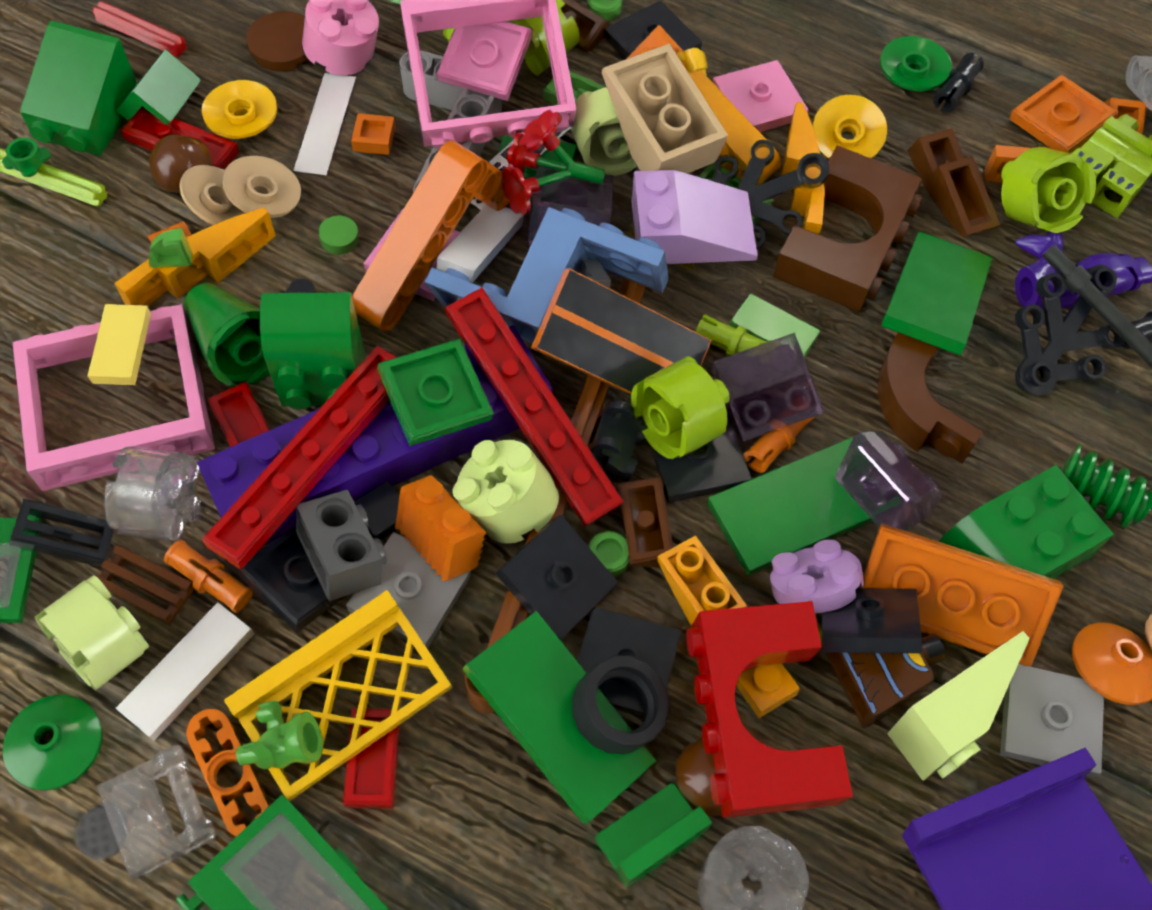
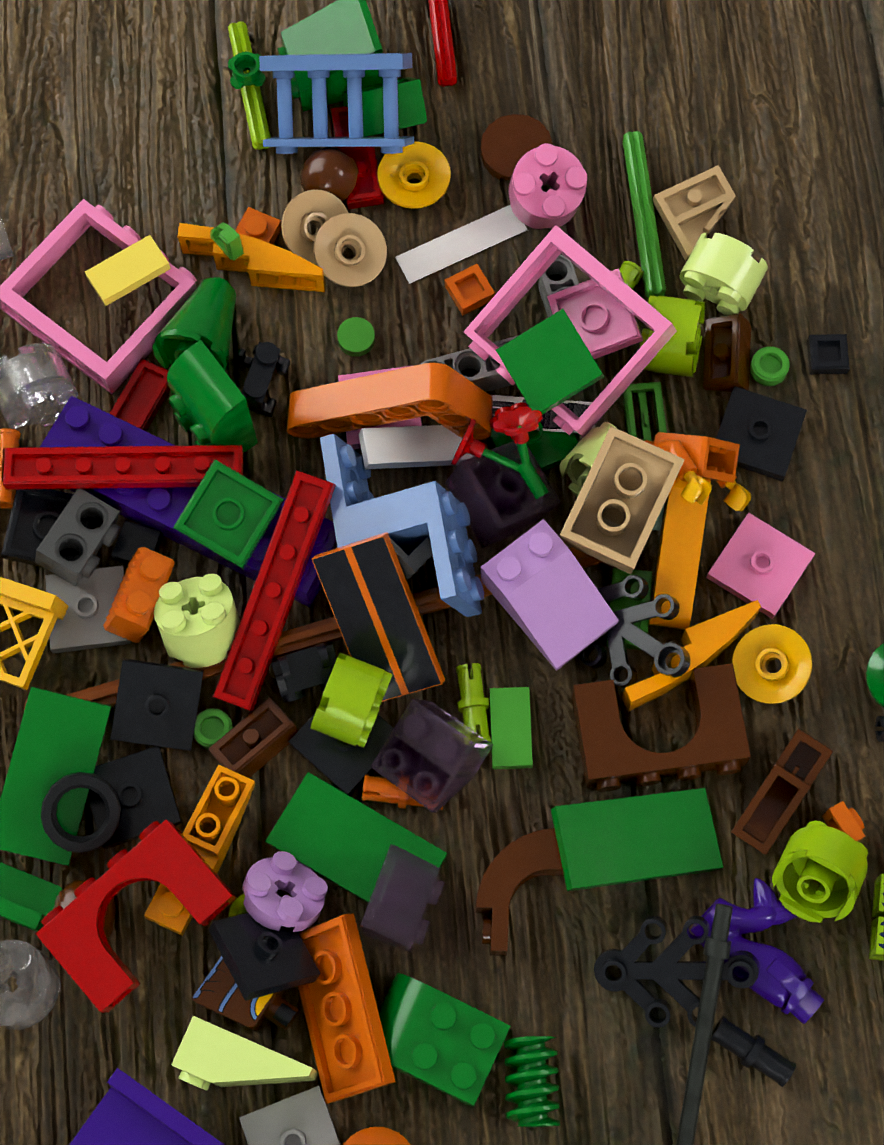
camera: 60 degrees right, 10 degrees up
(115, 61) = (318, 69): none -> medium blue fence
(506, 83) = (550, 362): none -> green tile

